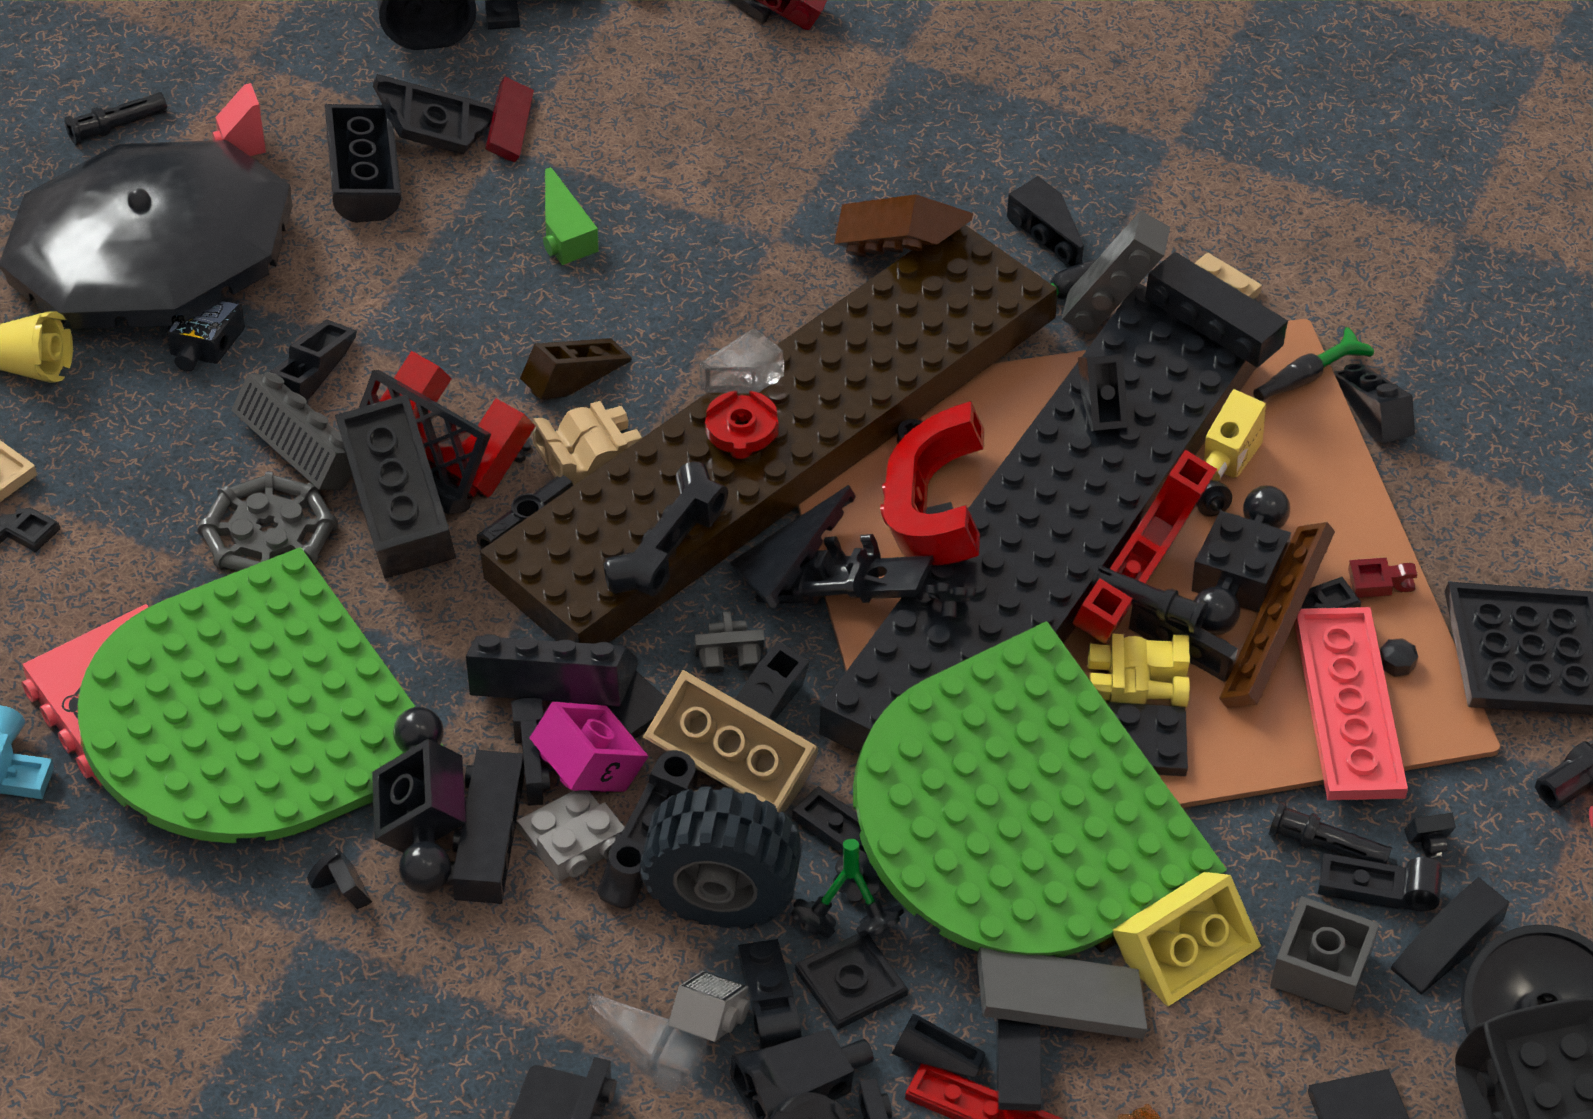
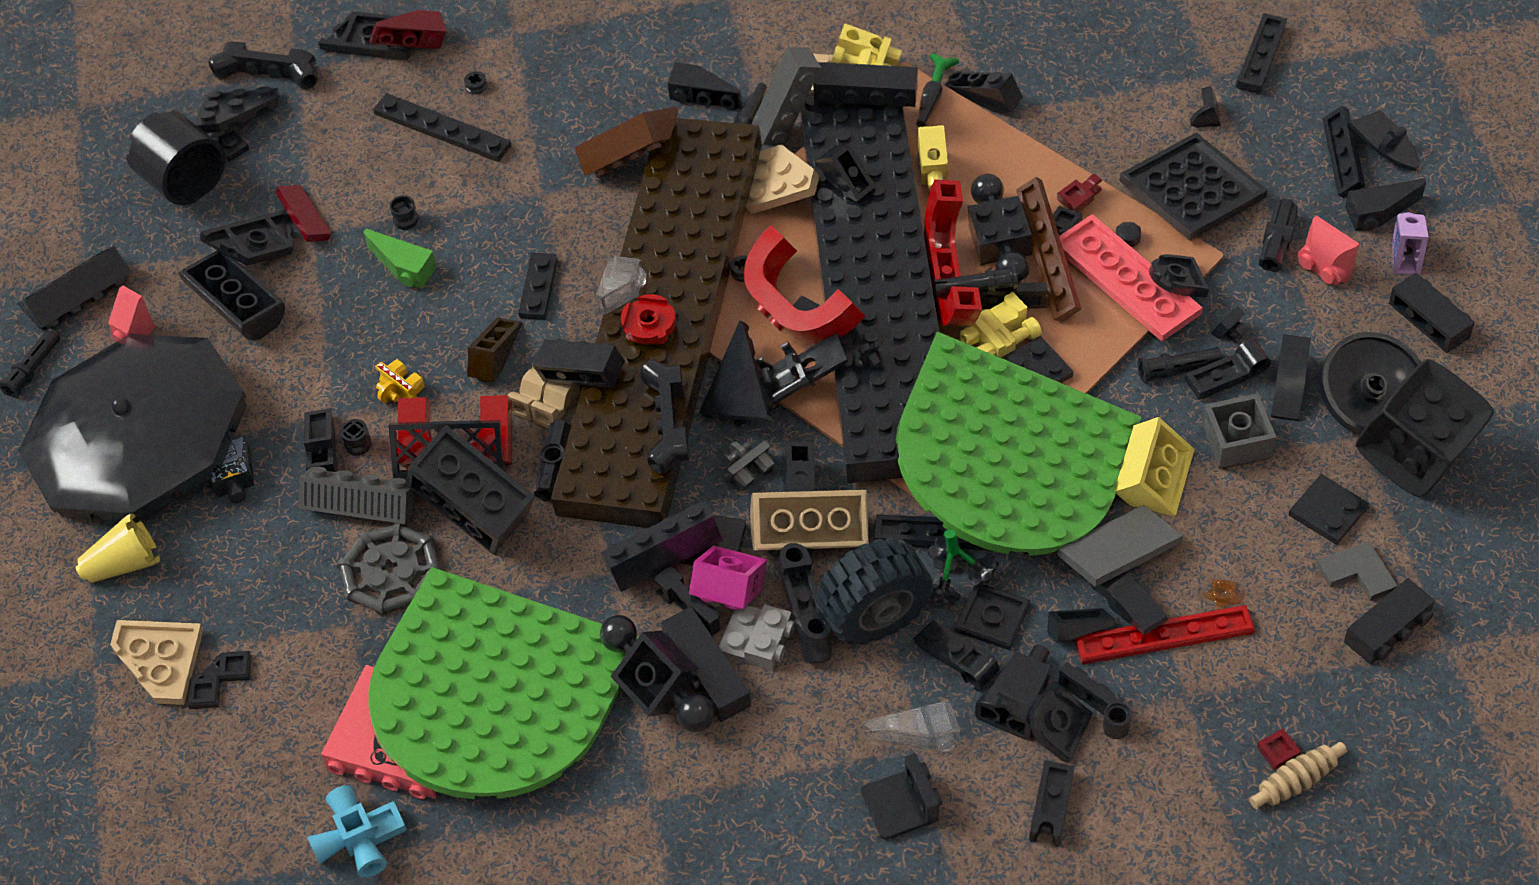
camera: 30 degrees left, 5 degrees up
(220, 67) = (75, 287): none -> black slope
(337, 868) = (637, 748): black tile -> none
(351, 372) = (356, 437): none -> black wheel
(438, 345) = (393, 385): none -> yellow hips
(610, 175) = (404, 212): none -> black wheel
(628, 424) = (578, 363): none -> black brick
(682, 331) = (538, 286): none -> black plate
(709, 1006) = (938, 683): light grey brick -> none
(734, 112) = (442, 127): none -> black plate
(810, 77) = (478, 87): none -> black bush
(1034, 364) = (780, 180): none -> tan plate
(1267, 277) = (863, 47): none -> light yellow hips
(1411, 735) = (1178, 275): none -> black tile

